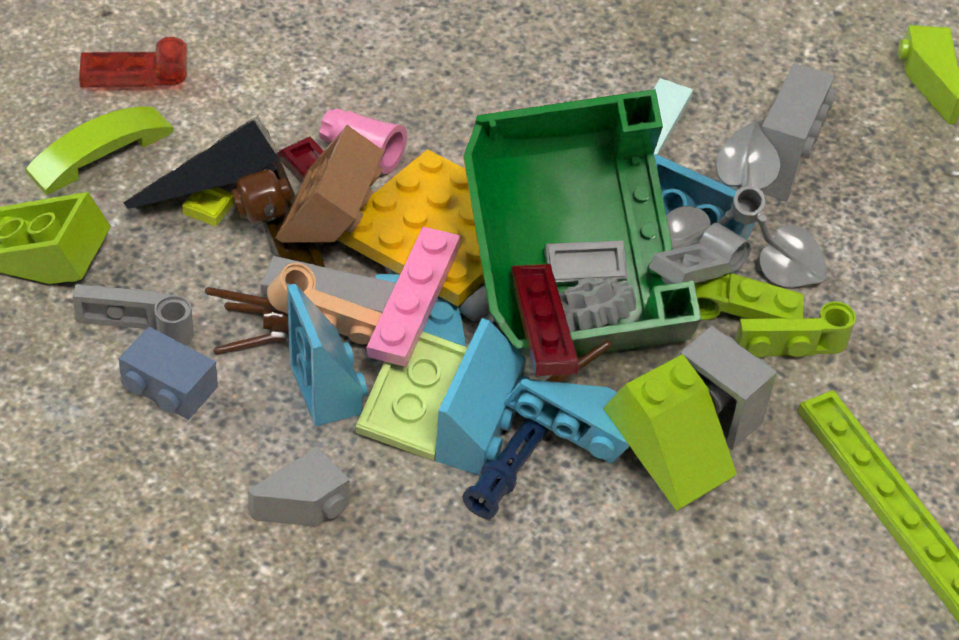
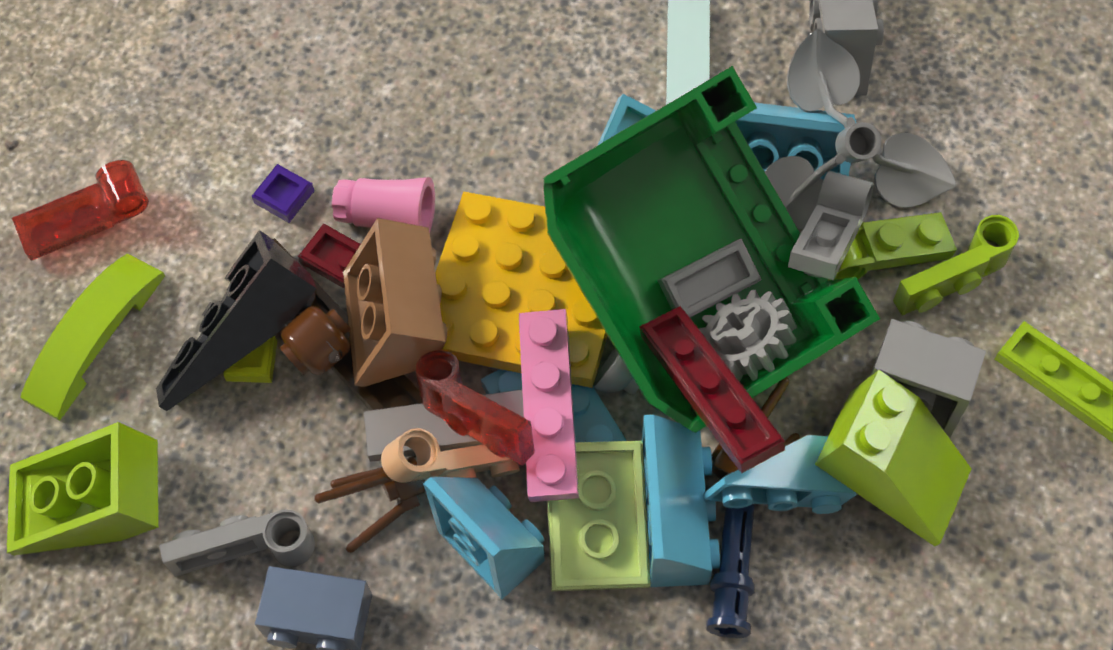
camera: 15 degrees left, 15 degrees up
(290, 109) = (283, 193): none -> dark purple tile
(352, 273) = (469, 411): none -> clear red plate

